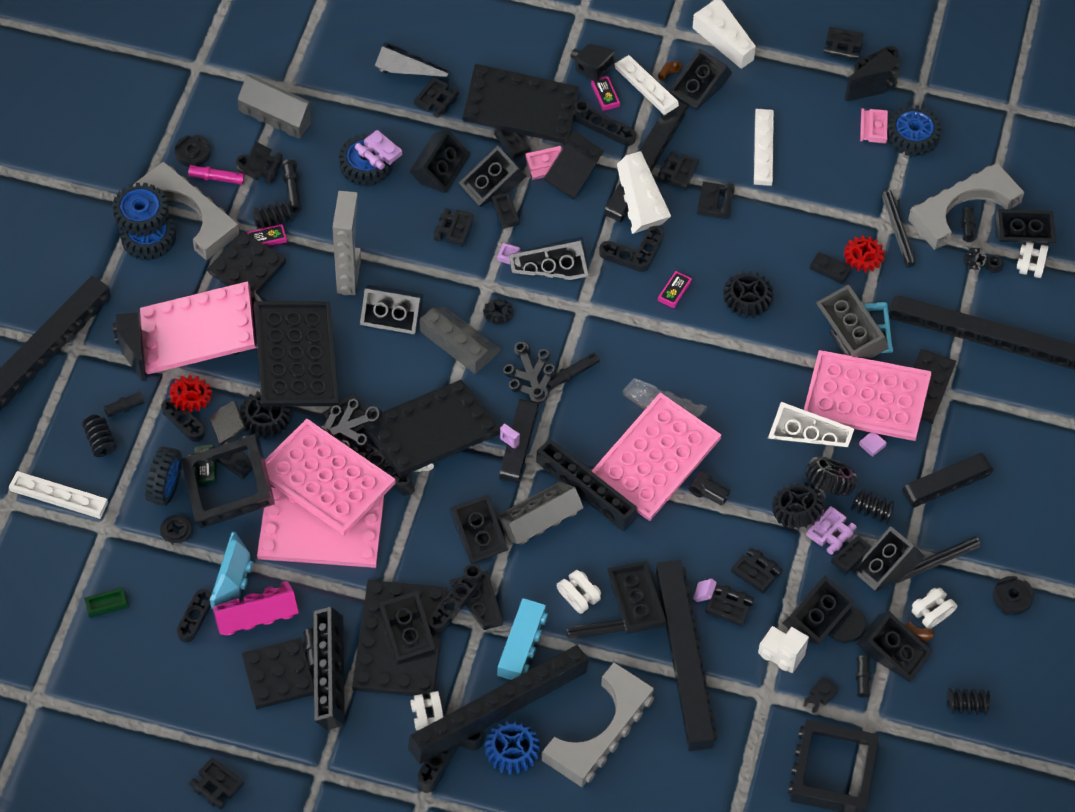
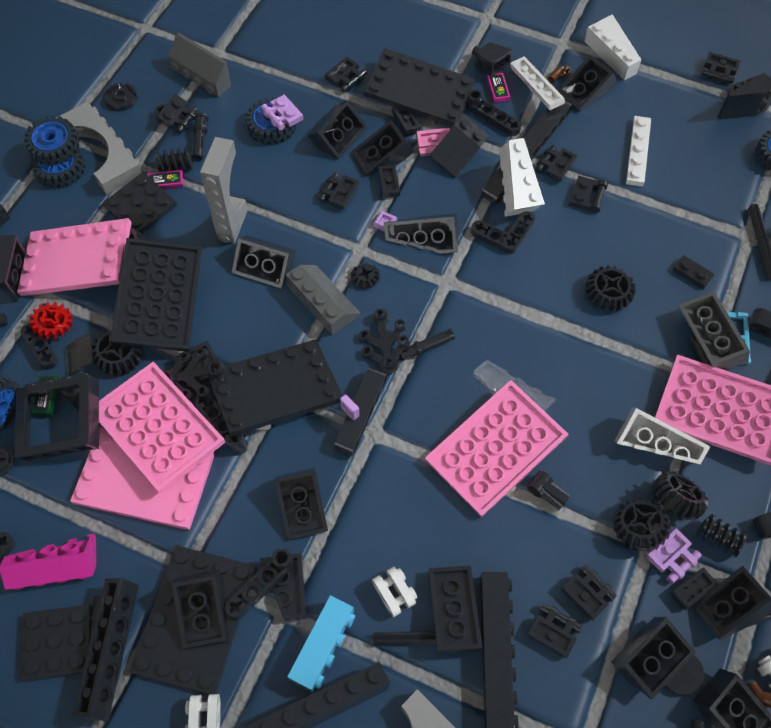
camera: 10 degrees right, 5 degrees up
(208, 173) = (130, 118): dark pink pin -> none
(232, 572) = (37, 518): medium azure wedge -> none
(396, 60) = (317, 39): wedge -> none
(539, 512) = (367, 493): dark grey slope -> none
(587, 484) = (421, 470): black brick -> none
(674, 289) = (538, 275): tile -> none
(704, 590) = (529, 609): lavender tile -> none
(784, 649) = (610, 698): white brick -> none
(858, 258) = (719, 262): red gear -> none
(872, 443) = (724, 461): lavender tile -> none
(874, 125) = (744, 142): bright pink plate -> none

